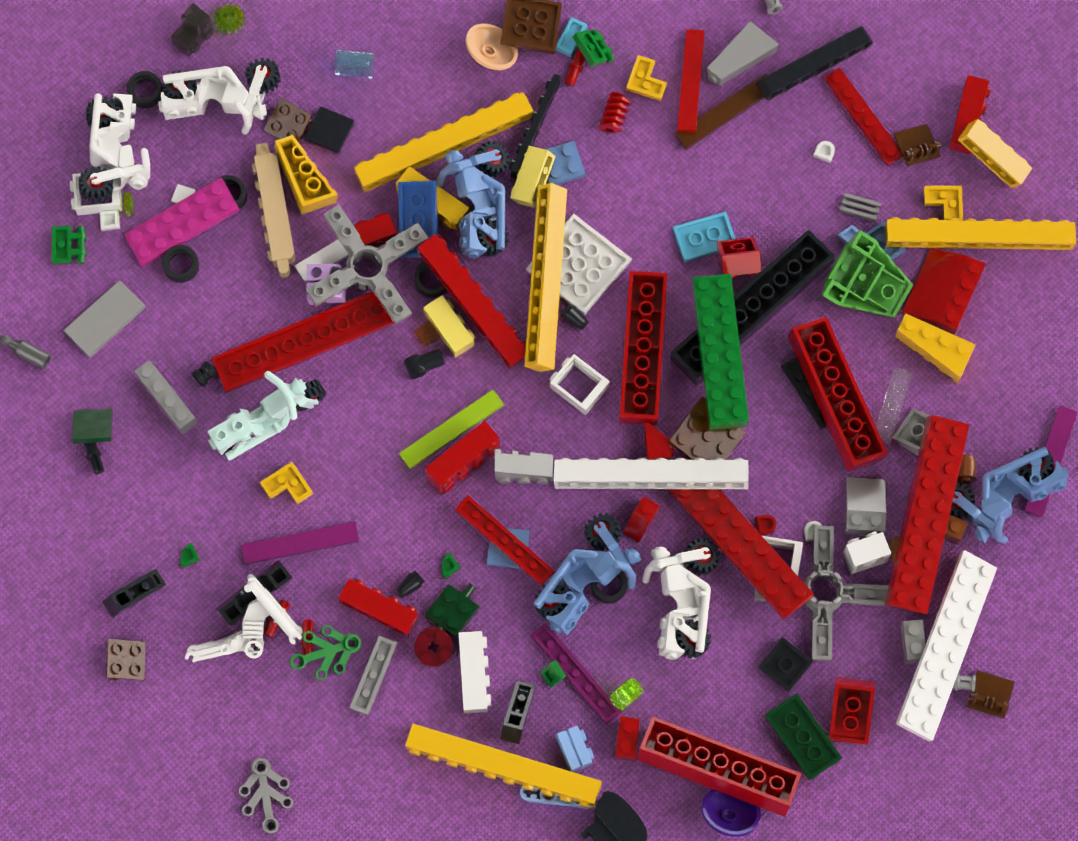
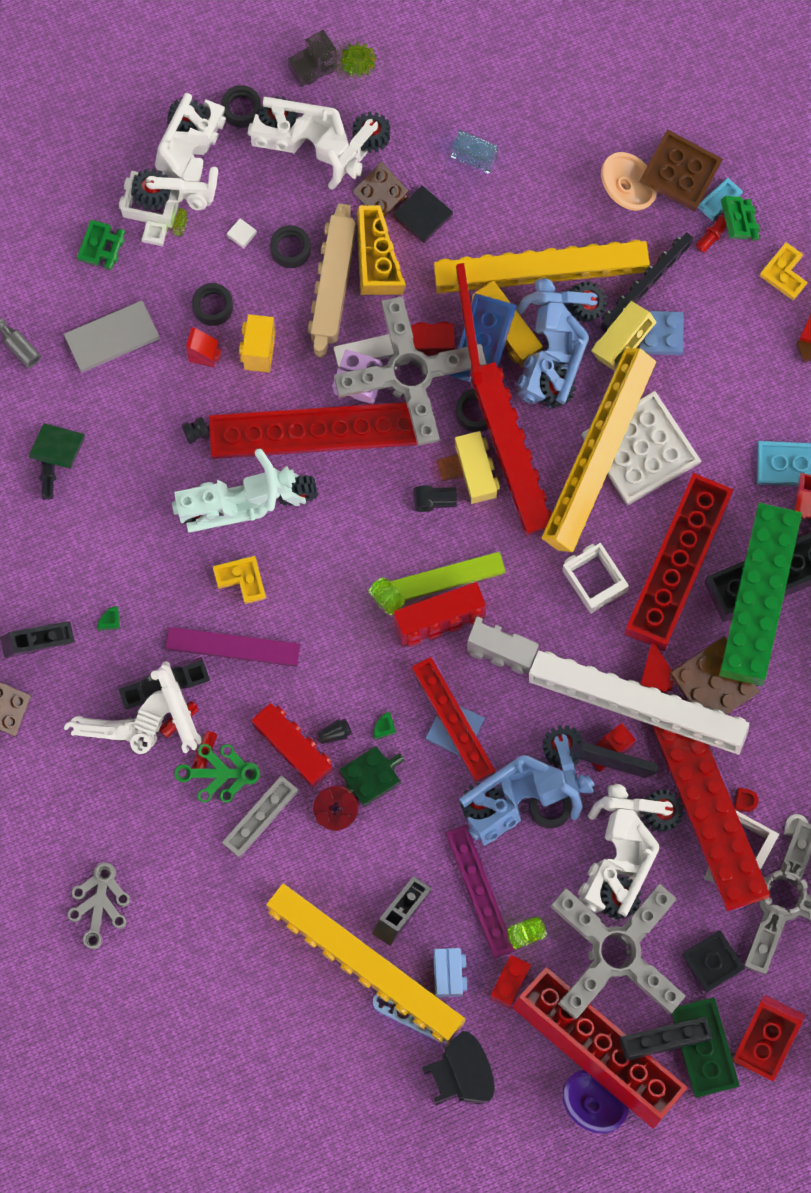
camera: 20 degrees right, 0 degrees up
(166, 397) = (145, 441): light grey brick -> none
(182, 222) = (230, 260): dark pink plate -> none
(186, 303) = (202, 348): none -> red slope
(231, 283) = (257, 343): none -> yellow brick
(401, 207) = (468, 323): none -> red tile
(413, 457) = (386, 595): none -> clear neon green gear
(473, 672) = (368, 850): white brick -> none
(553, 674) = (454, 882): green plate -> none
(574, 317) = (615, 503): black cone -> none
(613, 113) = (737, 296): red piece -> none
(648, 528) = (613, 759): none -> black tile
(711, 667) = (630, 935): none -> light grey piece
(770, 740) = (665, 1038): none -> black tile

